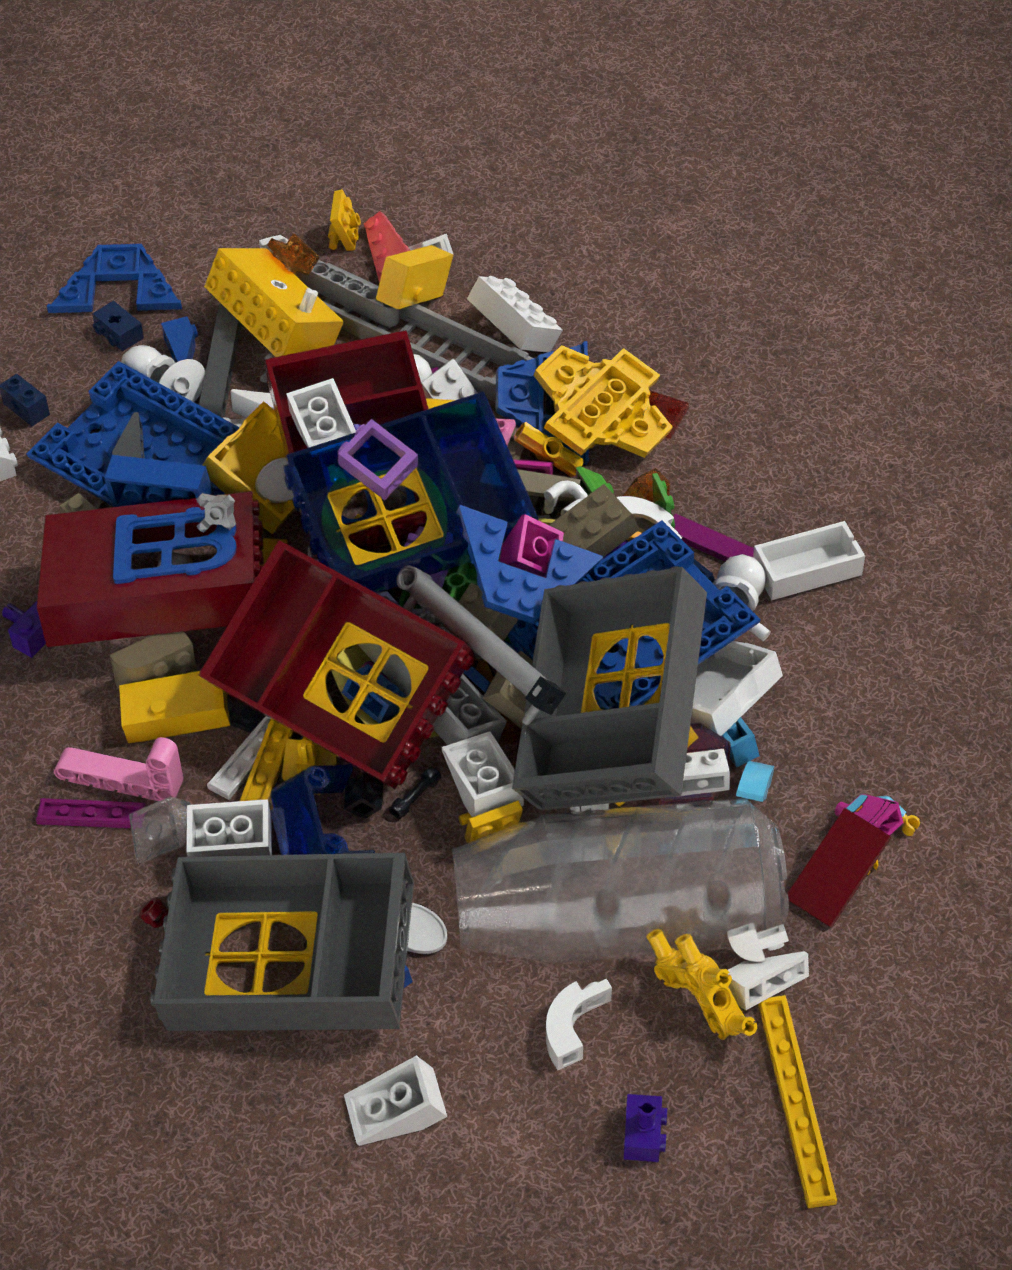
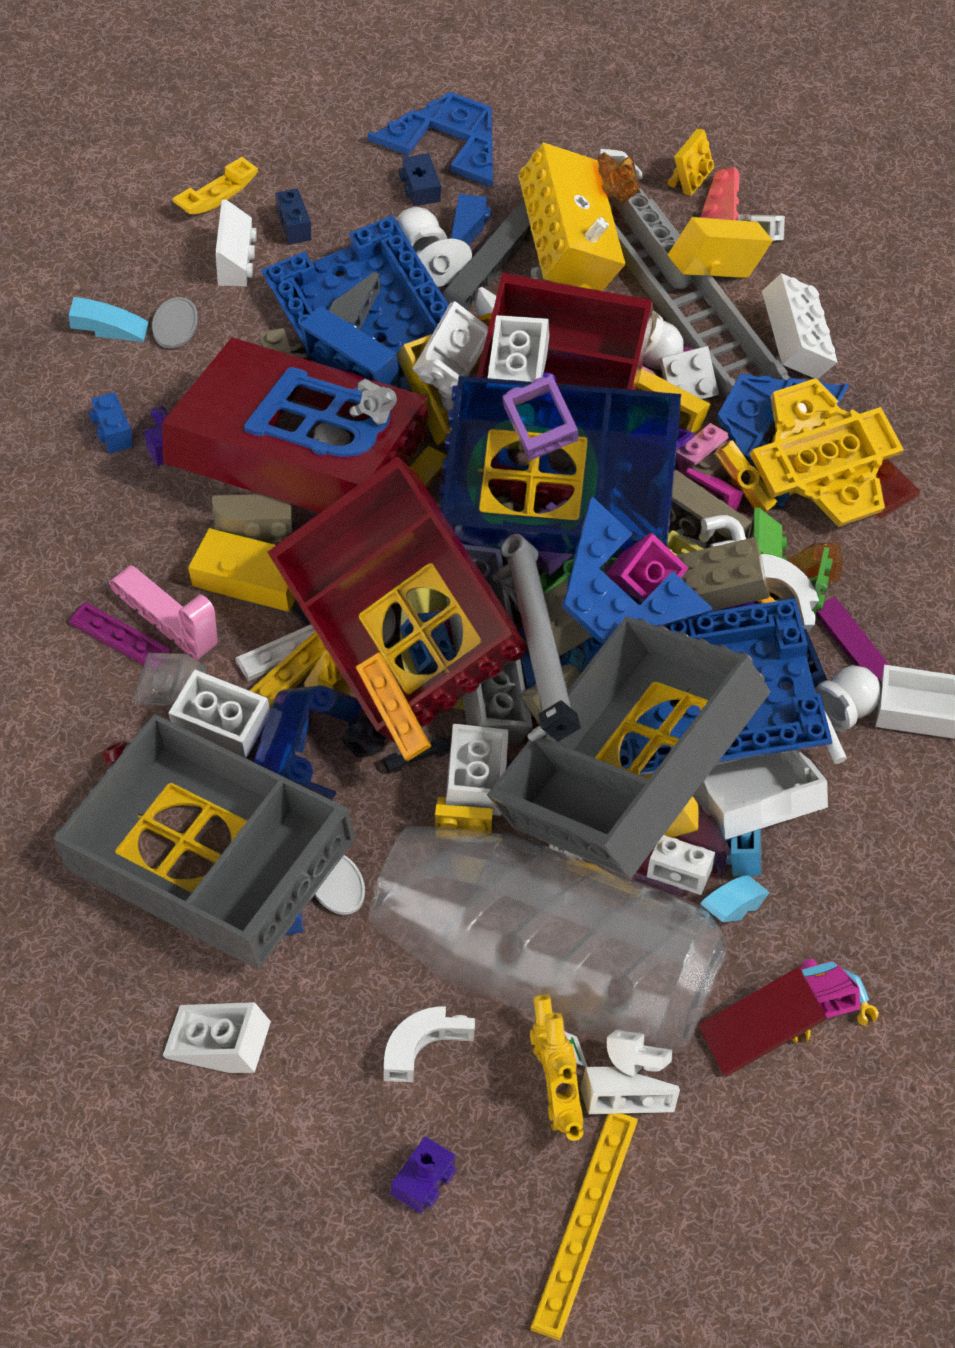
camera: 25 degrees right, 5 degrees up
(252, 445) = (451, 349): none -> white bracket
(388, 752) = (393, 706): none -> light orange tile

